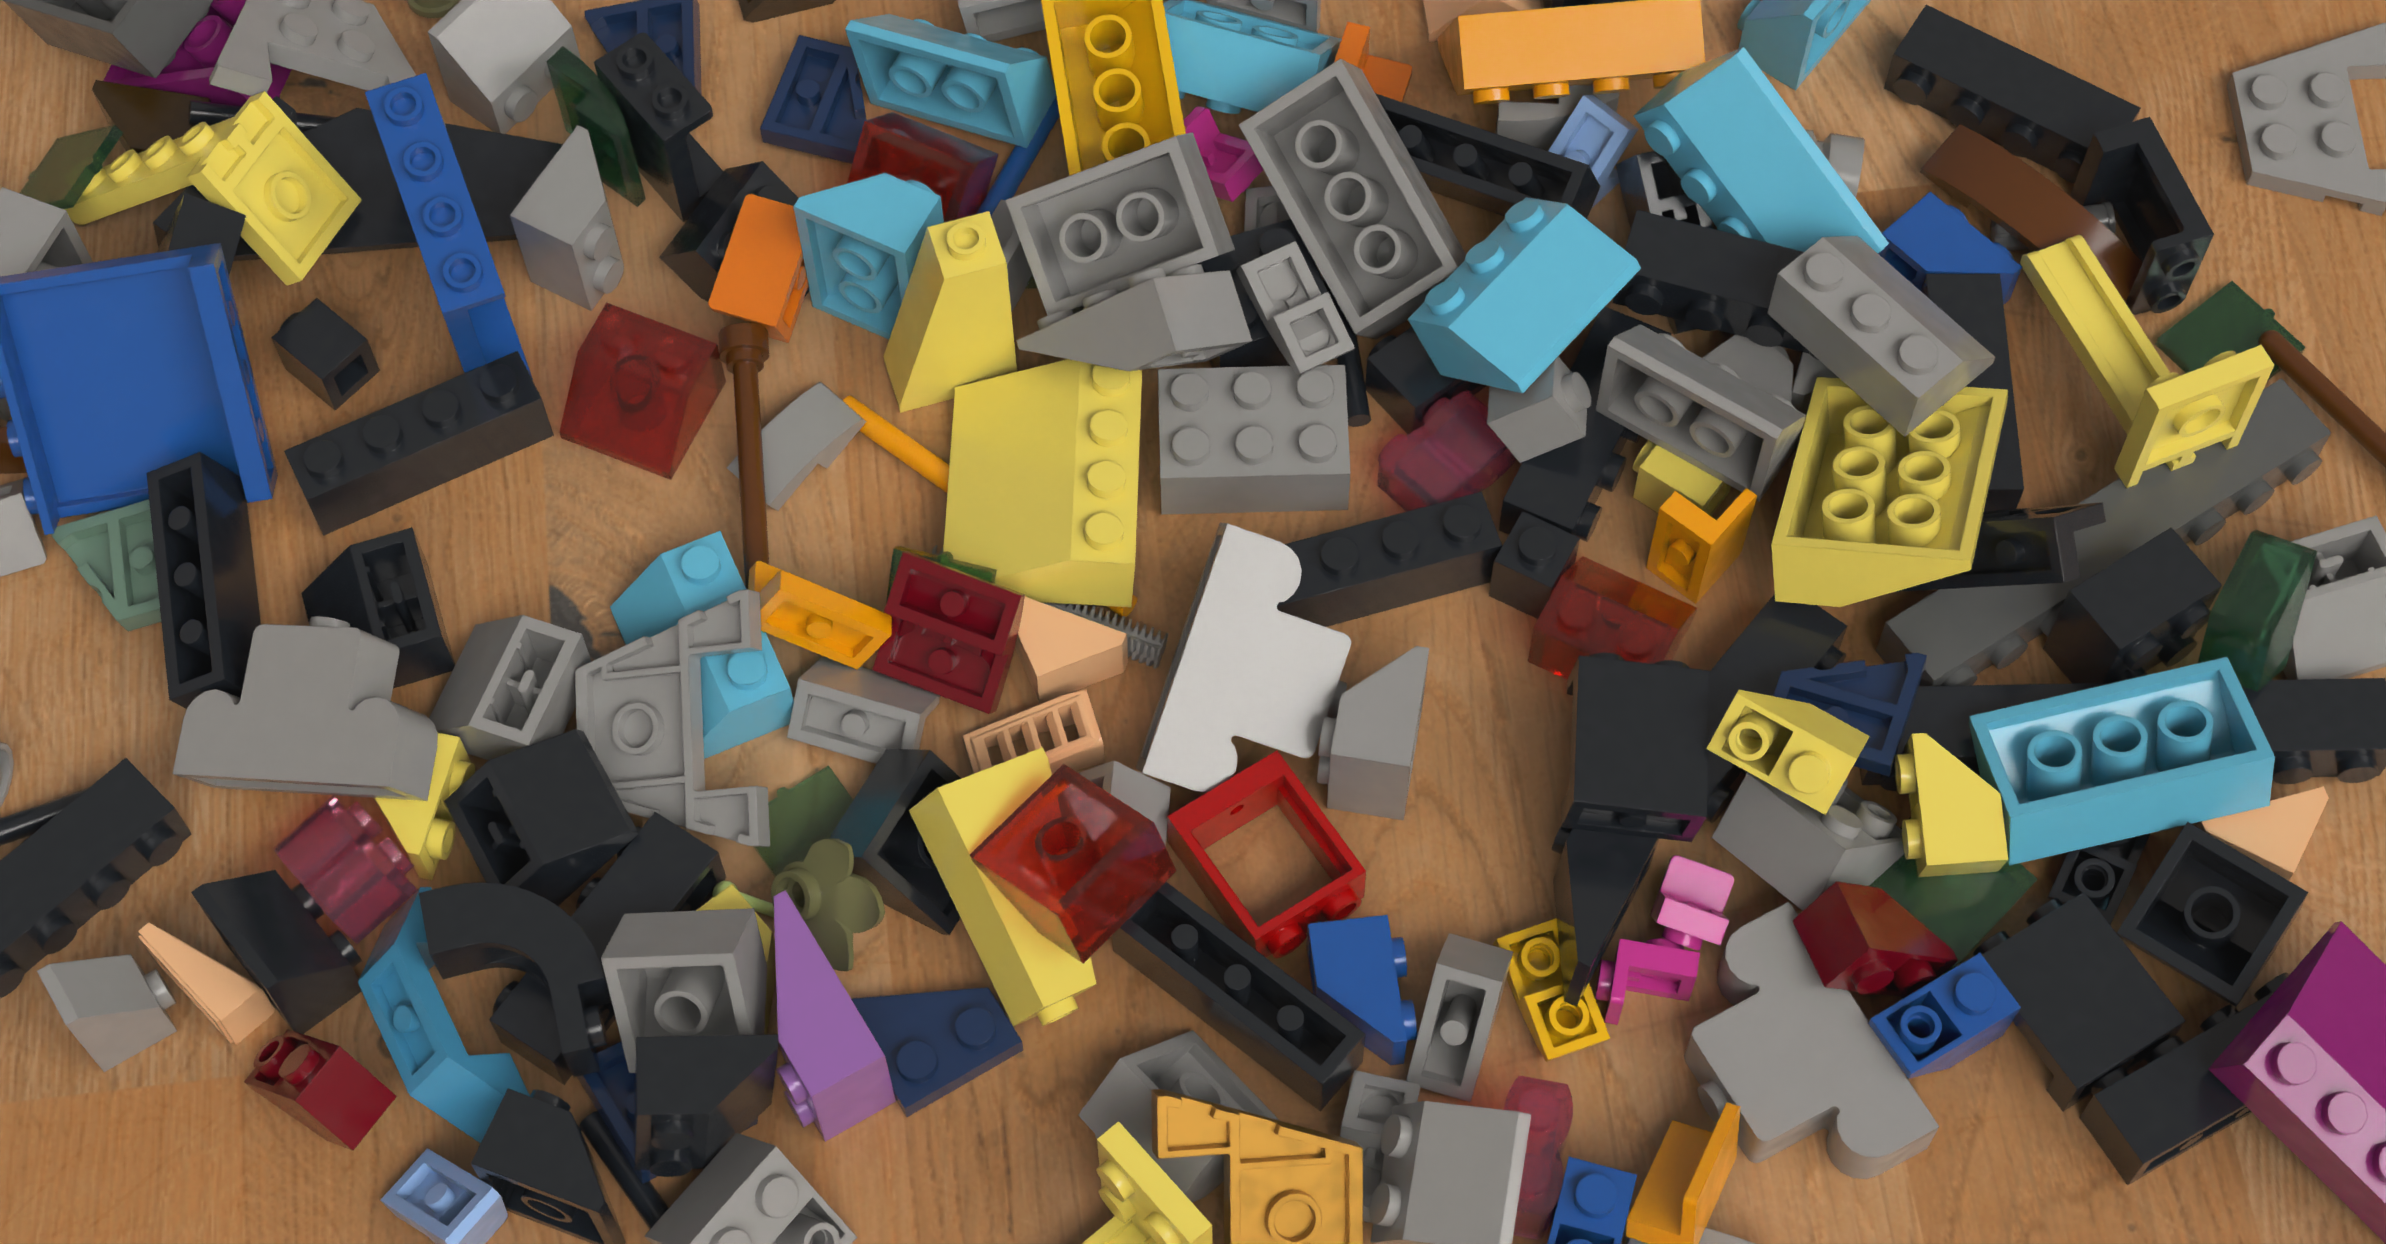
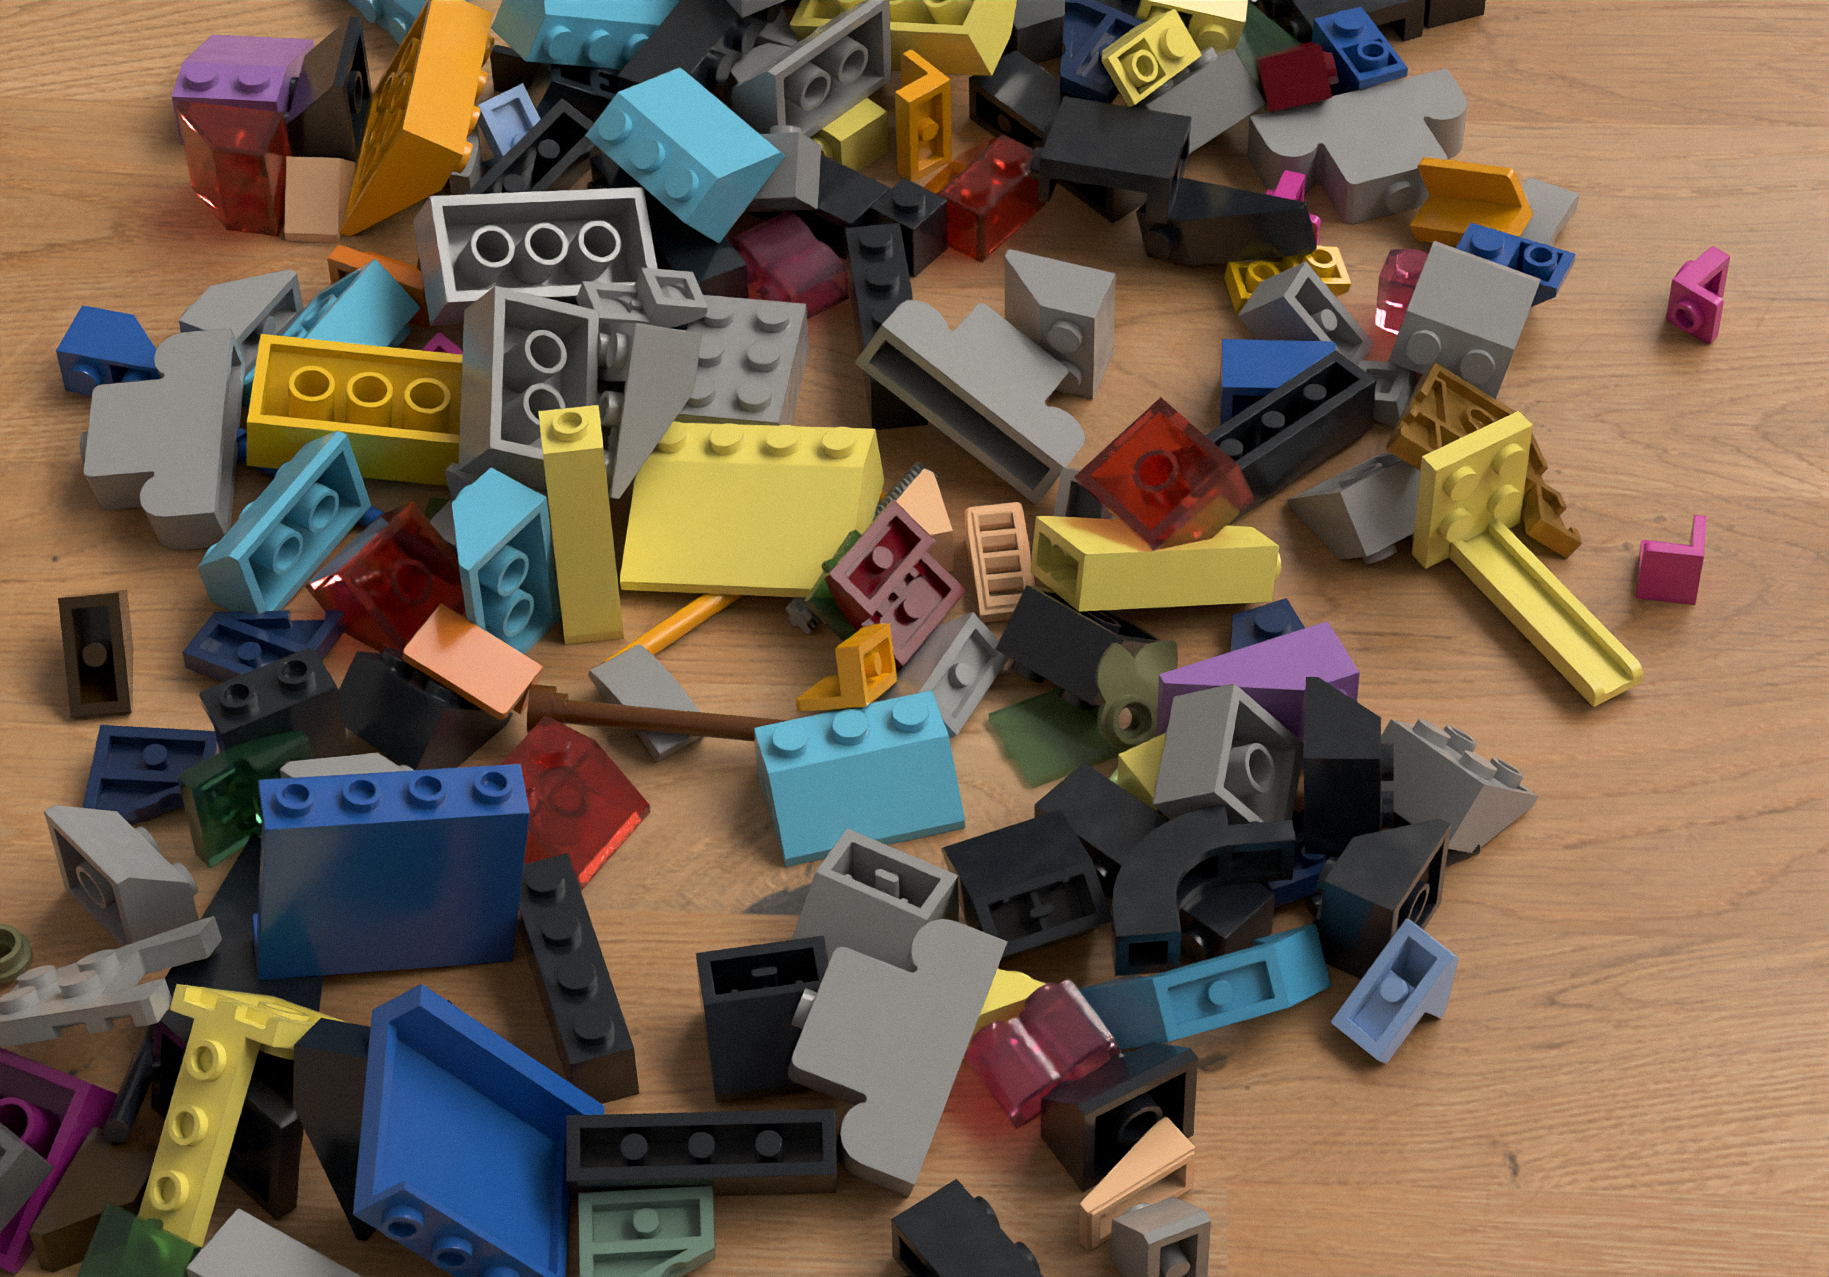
camera: 80 degrees left, 15 degrees down
(320, 1087) = (1260, 1095): dark red slope -> none
(647, 722) = (934, 800): light grey wing -> none
(1237, 803) = (1136, 387): red window -> none
(1692, 902) = (1253, 177): bracket -> none

